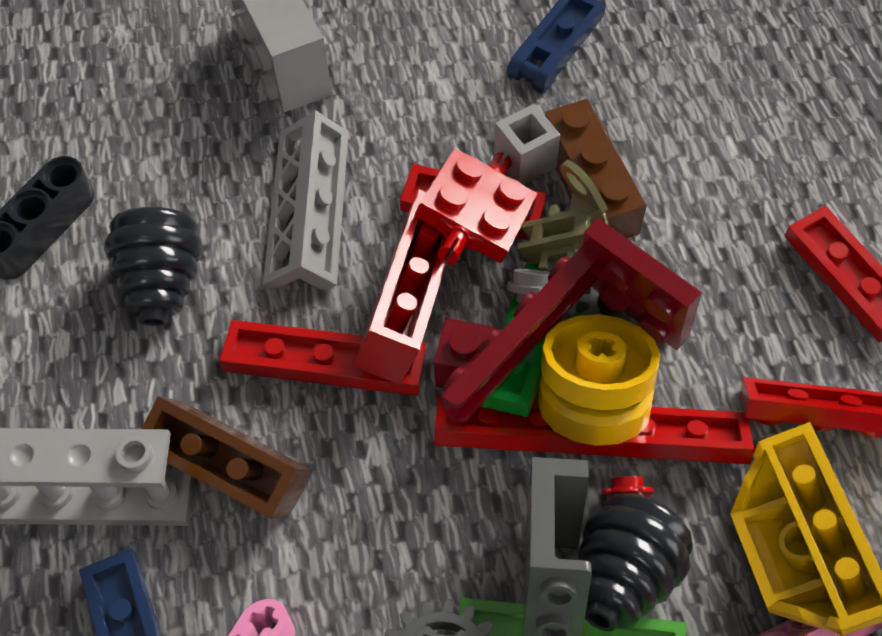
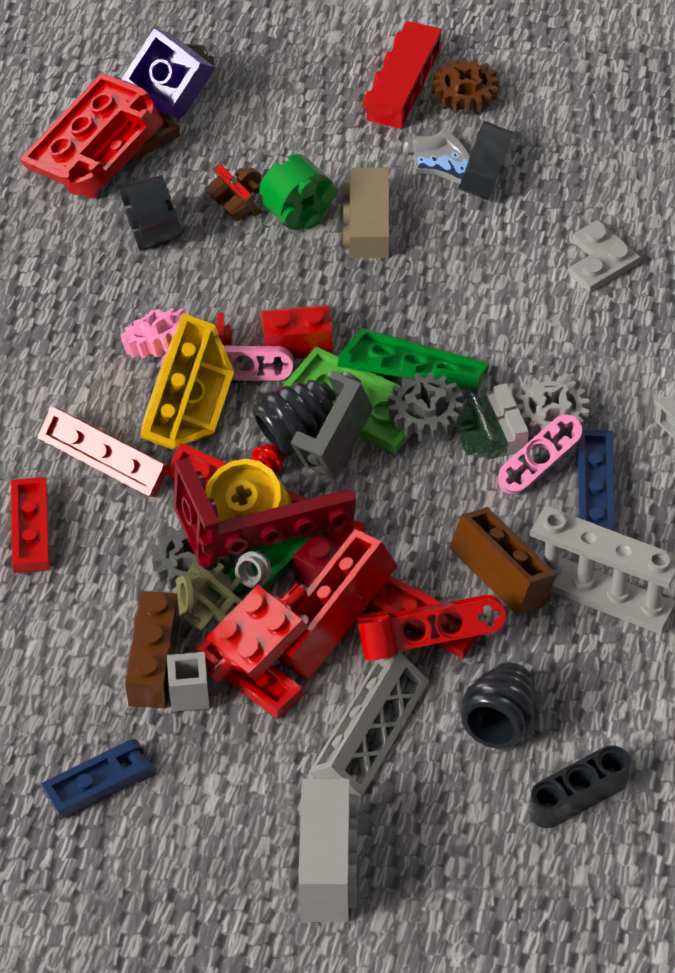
camera: 155 degrees left, 10 degrees down
(277, 304) = (384, 633): none -> red piece

